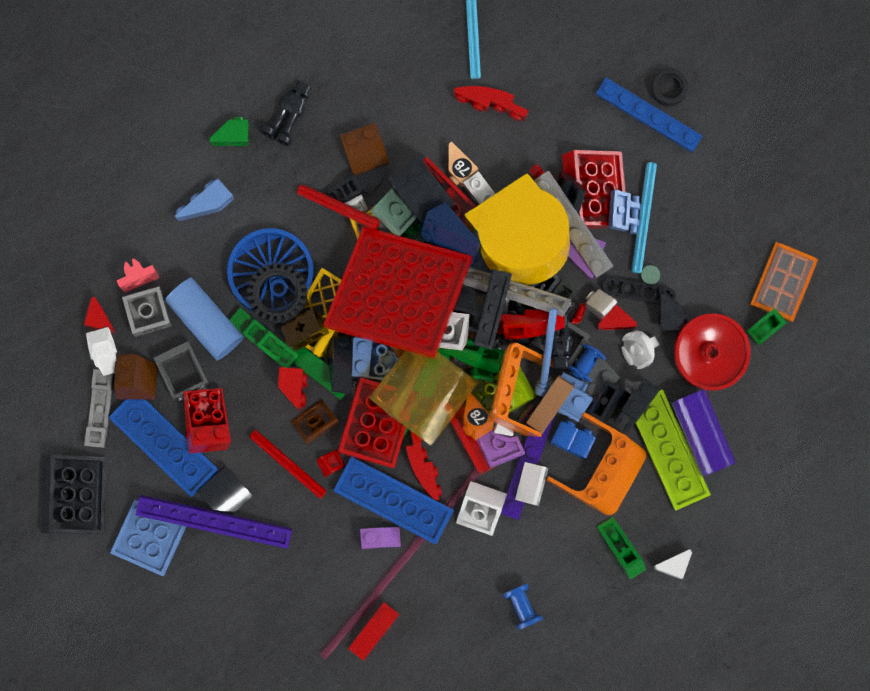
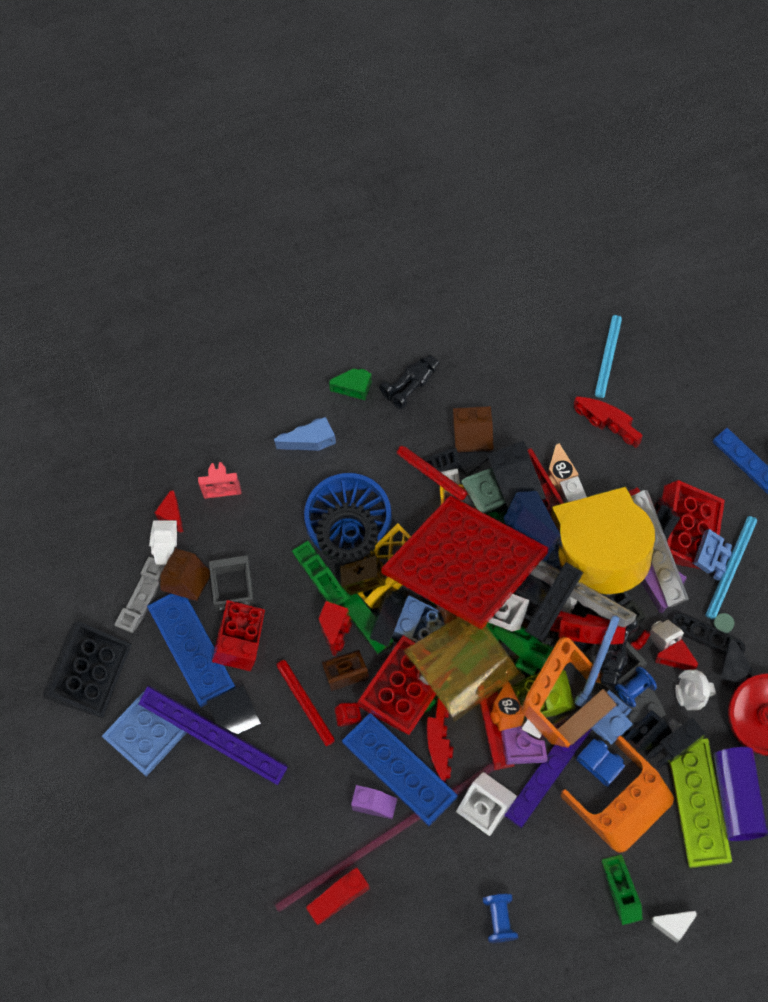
camera: 25 degrees right, 15 degrees down
(147, 311) = (218, 518): light grey brick -> none
(204, 318) = (269, 539): medium blue piece -> none
(531, 483) = (546, 793): white slope -> none

